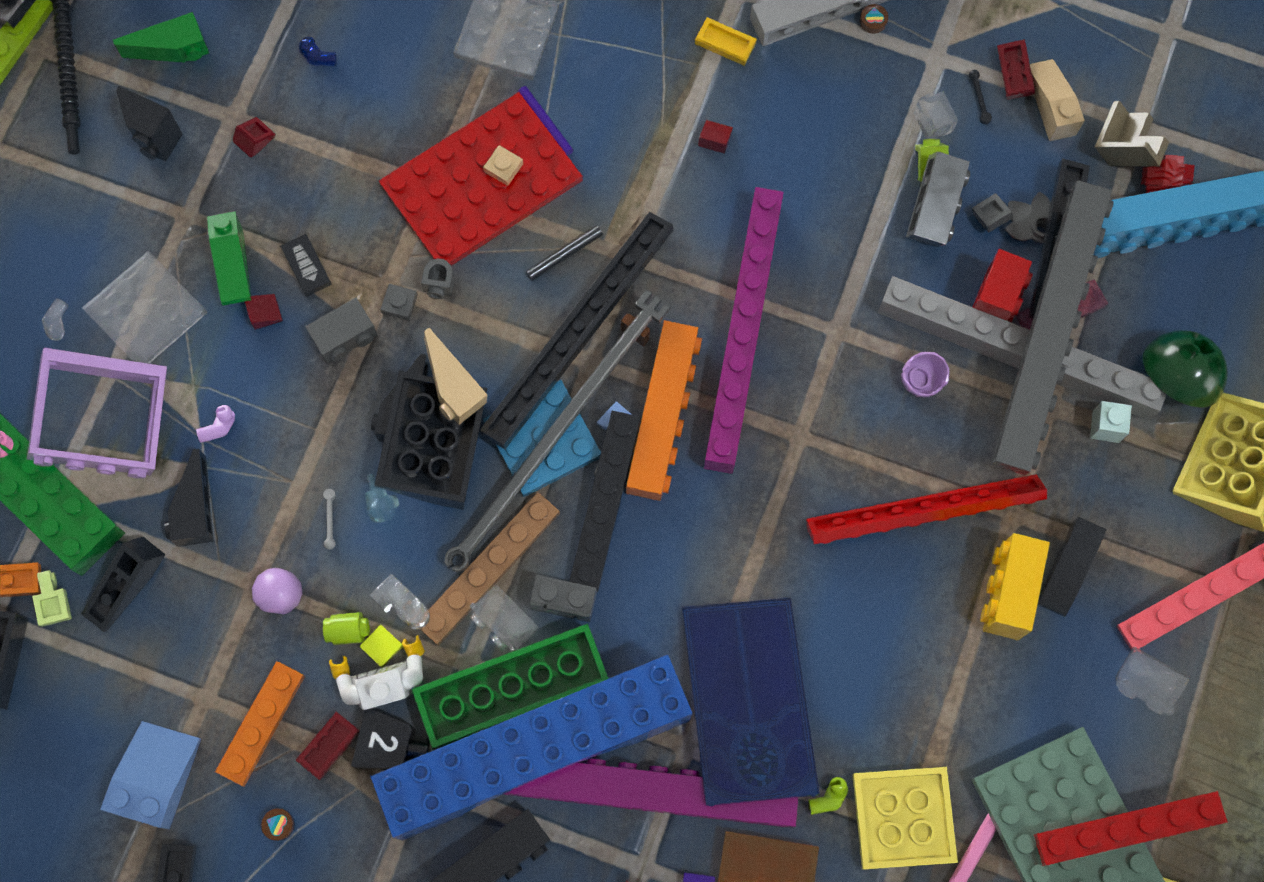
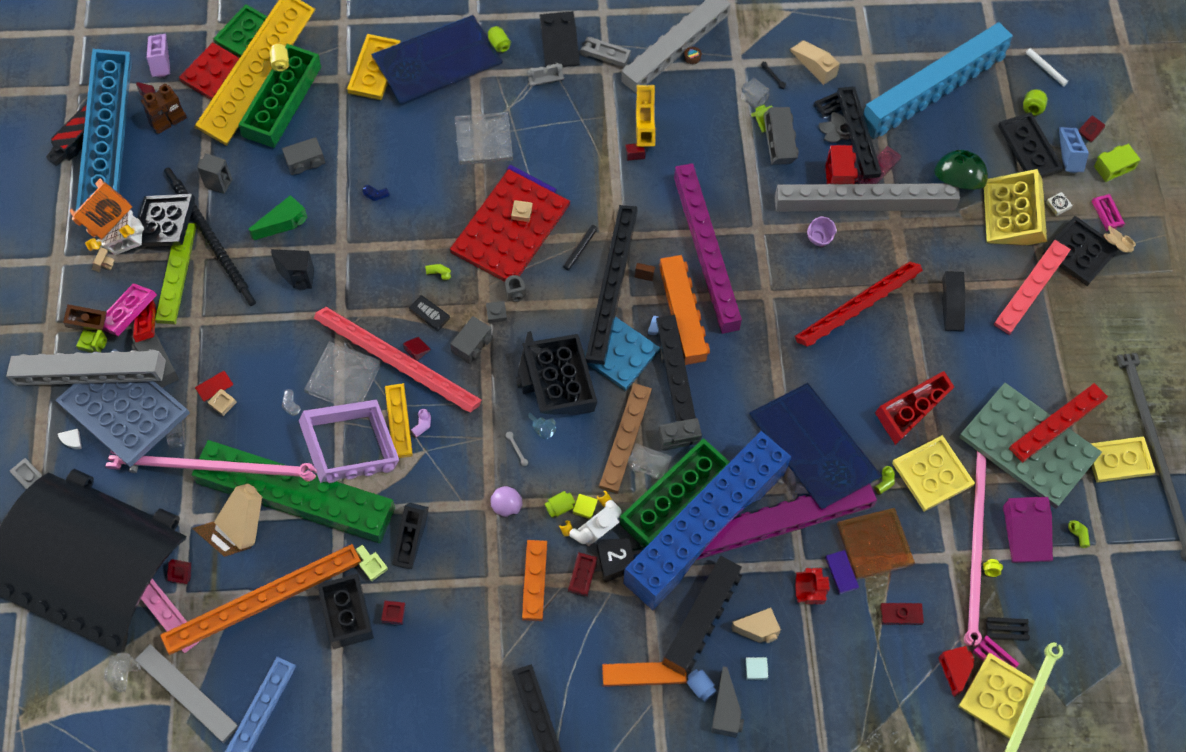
camera: 25 degrees left, 10 degrees down
(44, 687) = (393, 612): none -> dark red tile
(151, 775) = (485, 637): medium blue slope -> none
(188, 408) = (399, 419): none -> yellow tile
(190, 509) = (432, 478): black slope -> none
(228, 319) = (398, 359): none -> coral plate
(229, 257) = (383, 324): green slope -> none
(252, 136) = (359, 254): dark red slope -> none
(277, 824) = (574, 632): reddish brown tile -> none
(350, 205) = (438, 268): none -> lime arm
(408, 607) = (586, 474): clear leg -> none
(455, 387) = (558, 335): tan slope -> none
(559, 427) = (649, 258): dark grey hinge -> none
(725, 41) = (614, 98): yellow tile -> none
(753, 90) = (645, 115): none -> yellow arch
(919, 706) = (908, 409): none -> red wedge
(992, 212) = (813, 132): dark grey plate -> none
(1015, 586) = (930, 322): yellow brick -> none
(1016, 69) = (786, 52): dark red plate -> none
(1037, 187) = (828, 109): none -> black tile
(1051, 328) = (881, 176): dark grey brick -> none
(1110, 422) = (935, 217): light aqua brick -> none
(1125, 139) = (866, 67): dark tan panel -> none
(1151, 681) = (1028, 342): clear bracket -> none
(1168, 175) = (896, 74): red hair -> none

